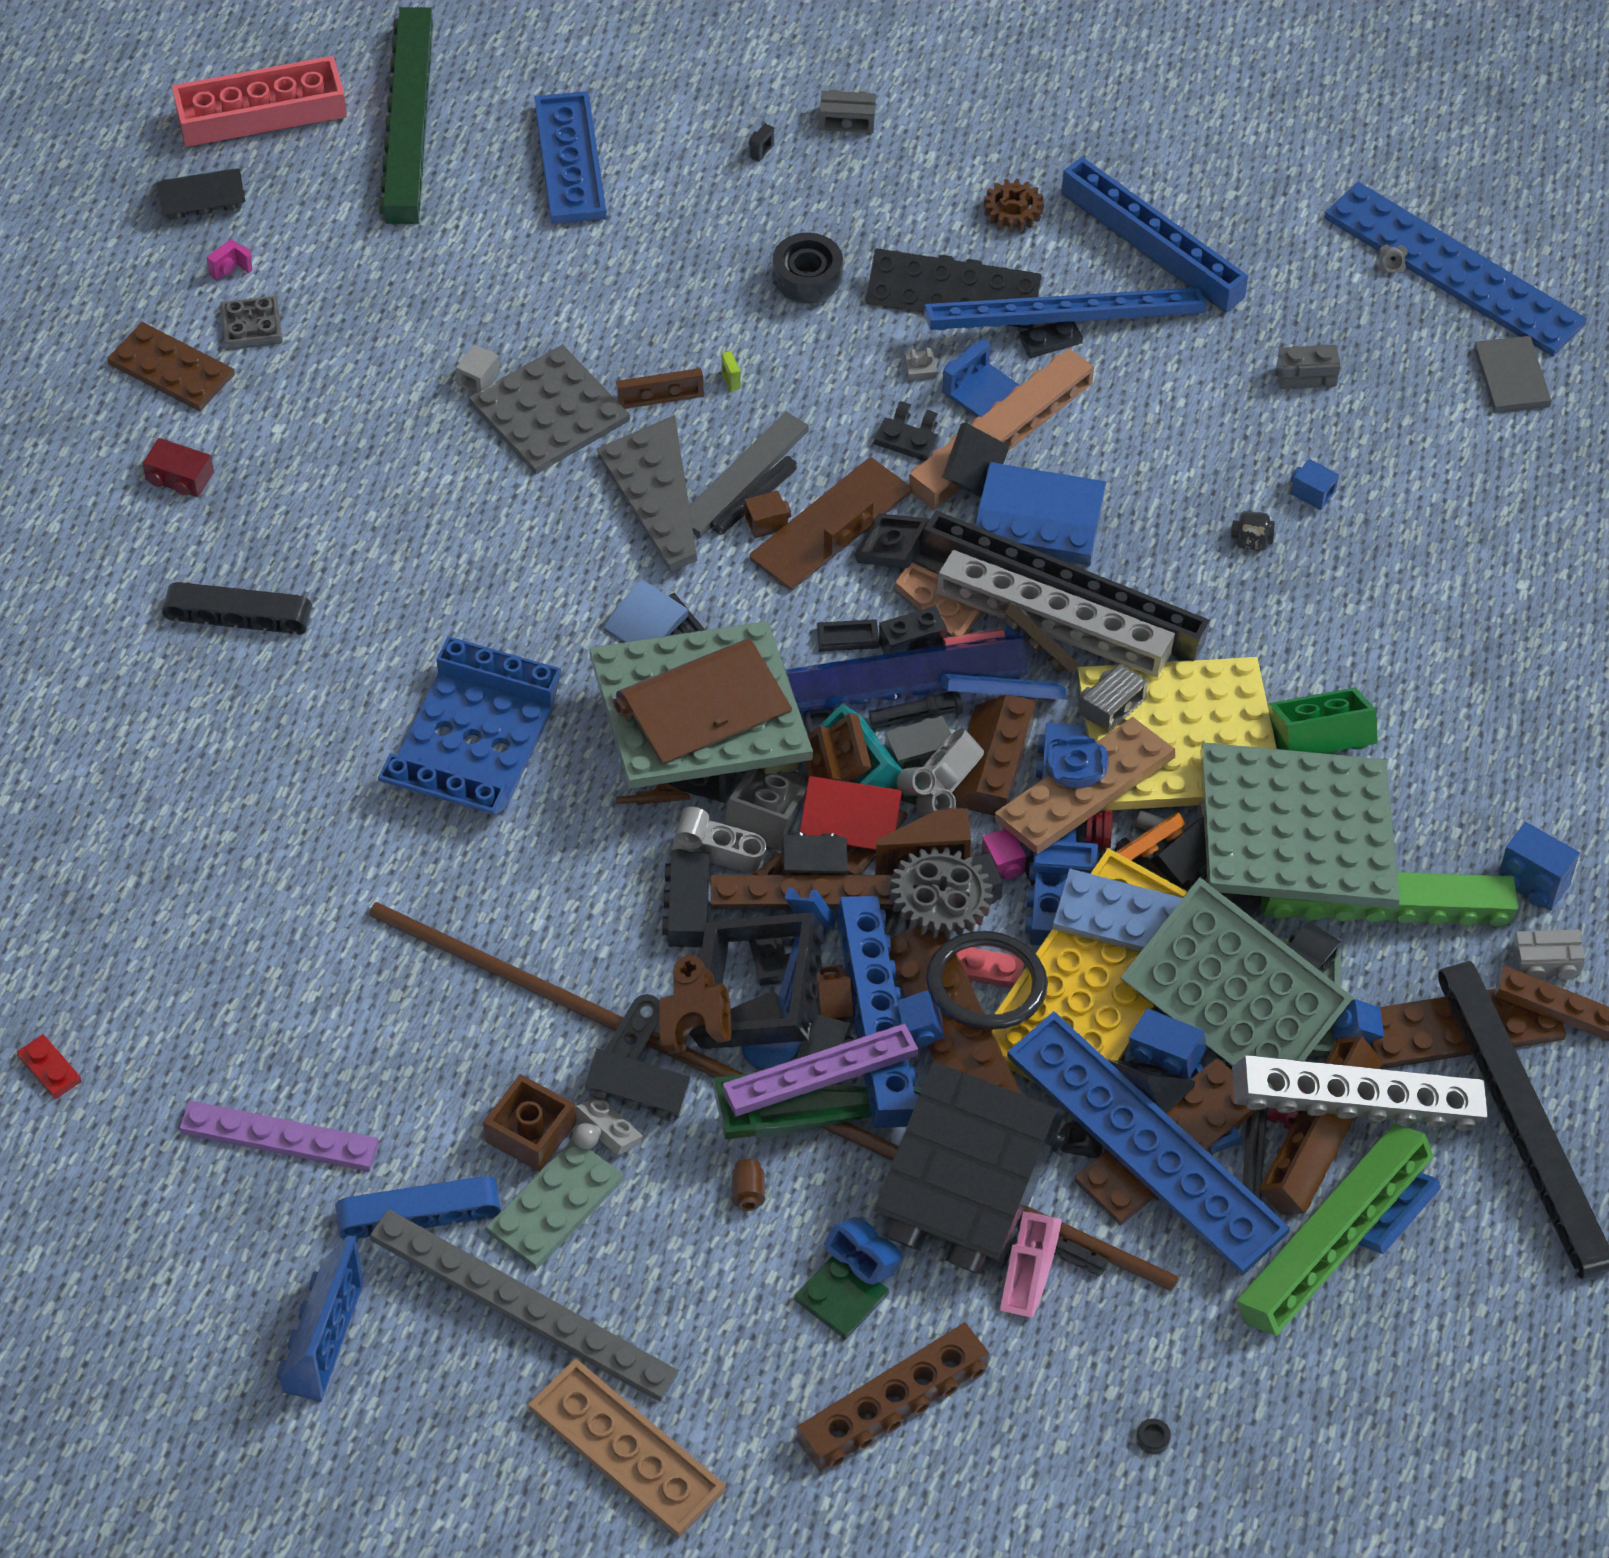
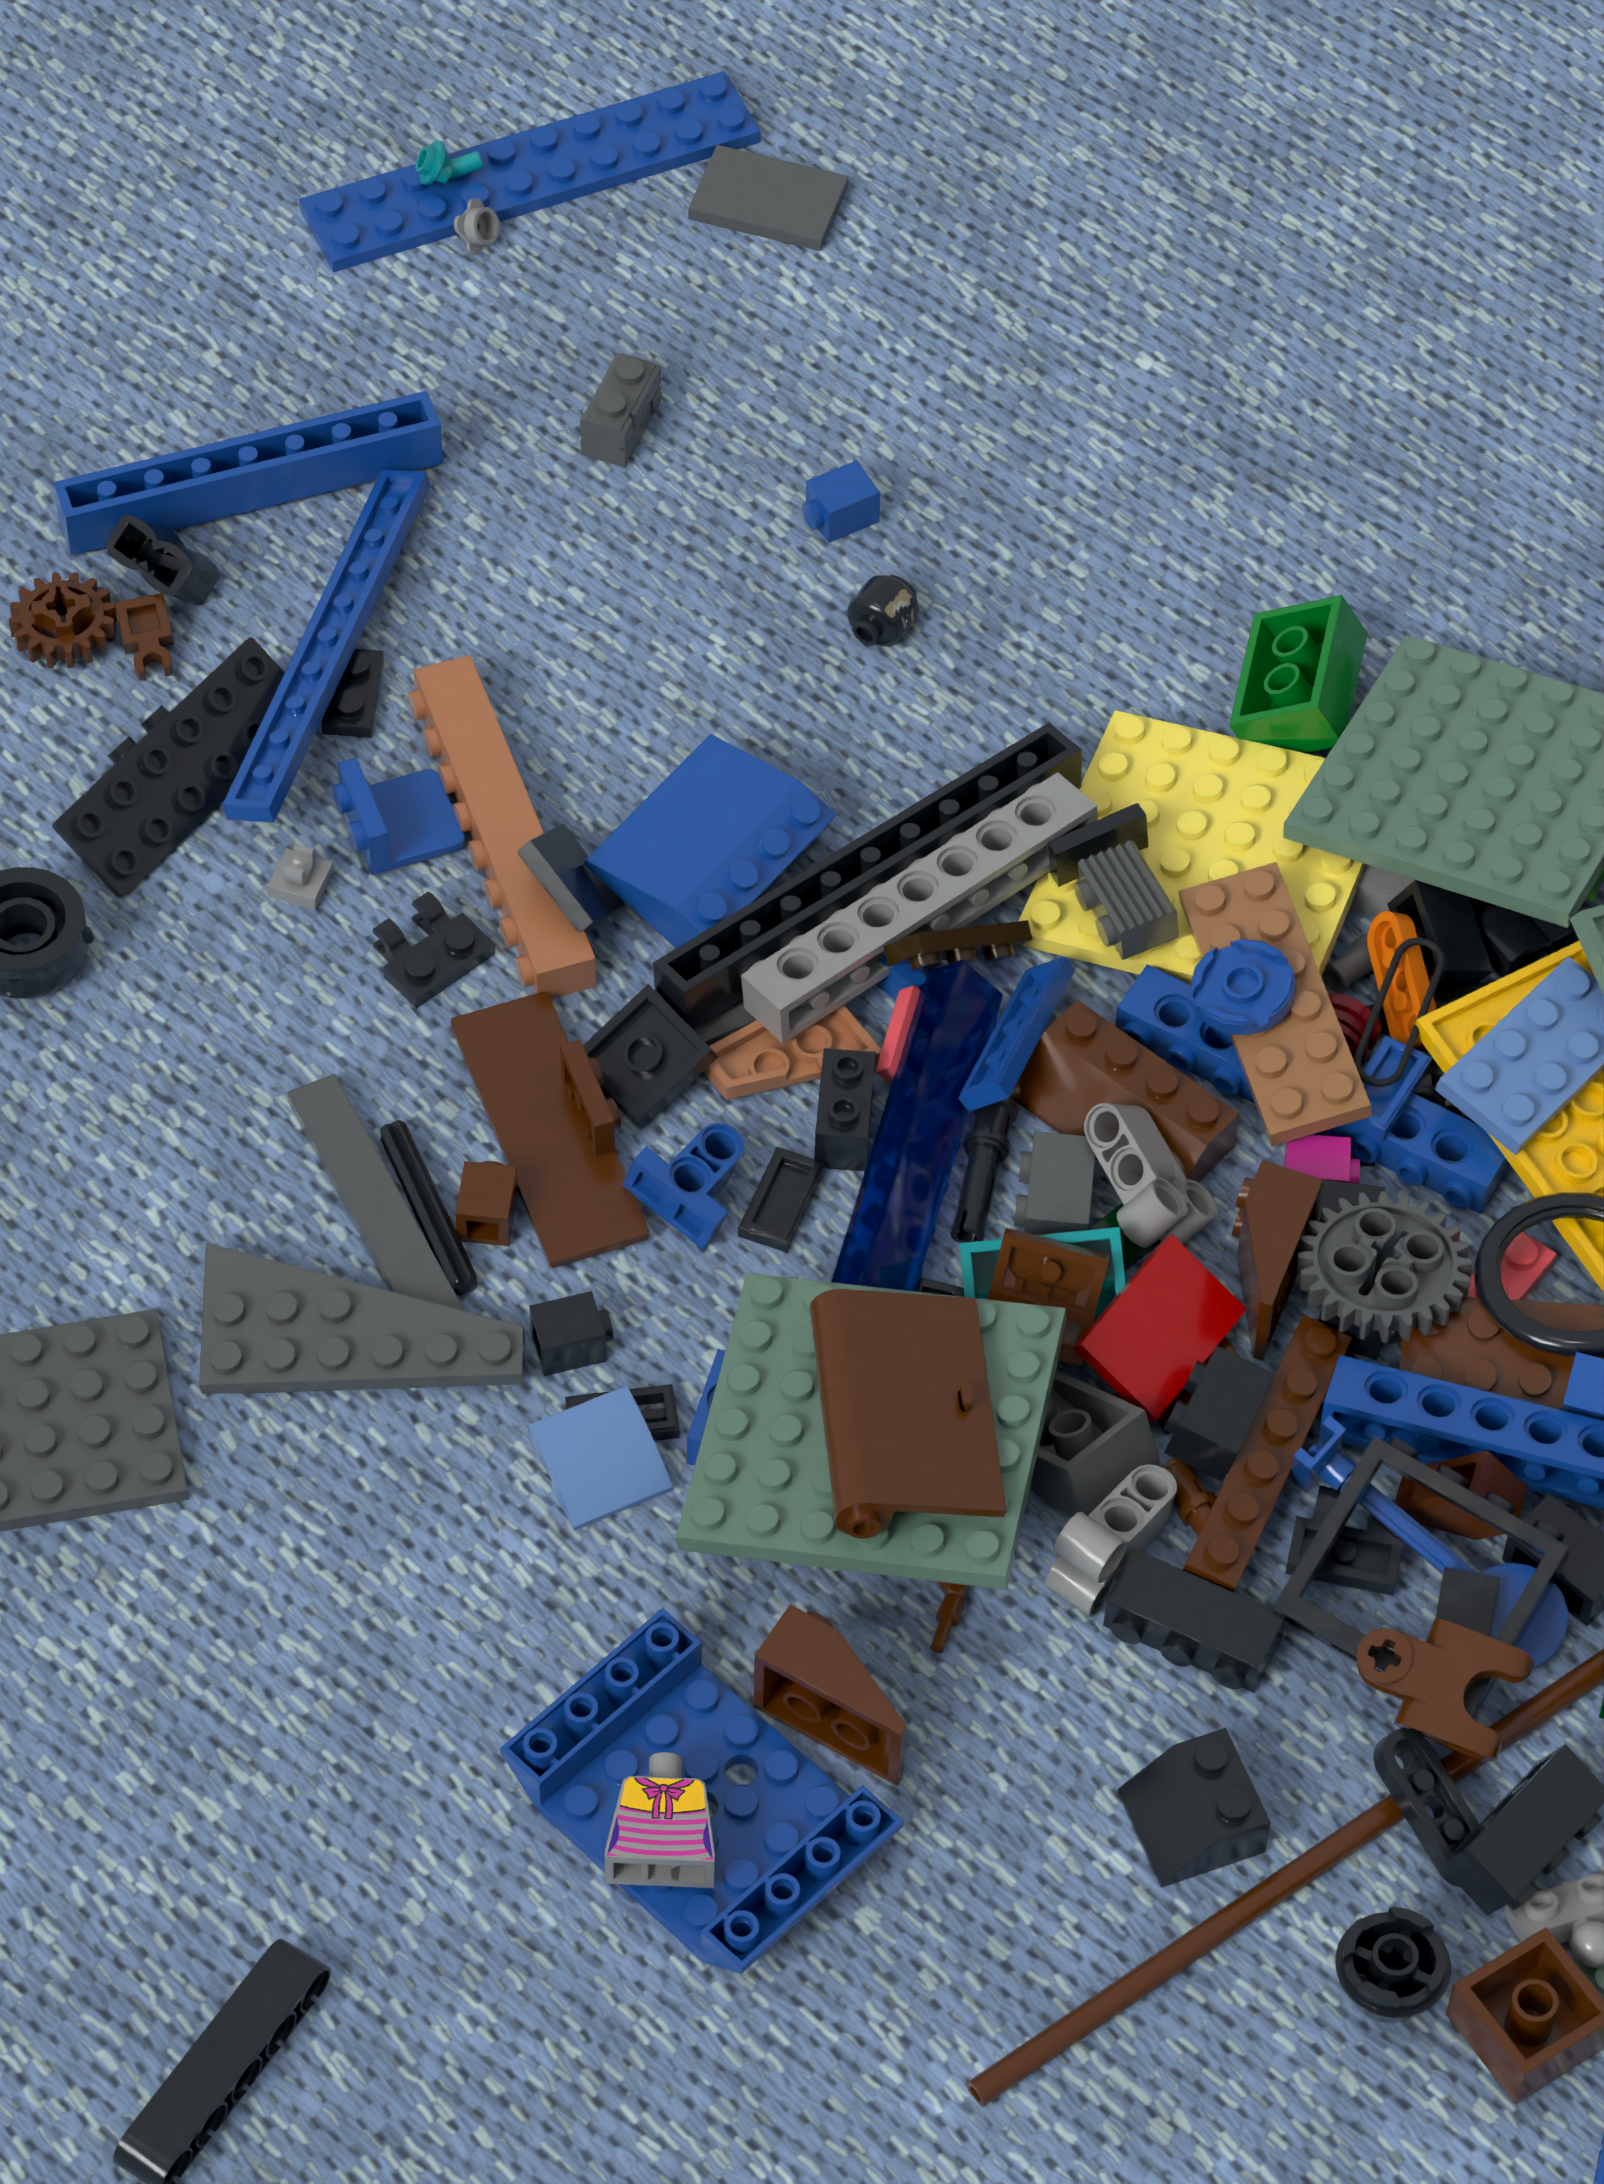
camera: 65 degrees left, 0 degrees up
(439, 717) = (661, 1829): none -> torso
(524, 1049) = (1393, 1965): none -> black cone
(555, 753) = (823, 1691): none -> reddish brown slope
(580, 942) = (1195, 1809): none -> black slope
(660, 388) = (132, 1241): reddish brown plate -> none
(709, 577) = (569, 1333): none -> black brick
(730, 371) = (159, 1130): lime tile -> none
(836, 583) = (694, 1168): none -> blue tile
(1030, 239) = (146, 631): none -> reddish brown plate
(1073, 224) = (162, 559): none -> black brick
(1112, 829) = (1378, 1005): none -> black piece
(1158, 677) = (1096, 837): none -> black tile
(1414, 221) = (435, 164): none -> teal plate

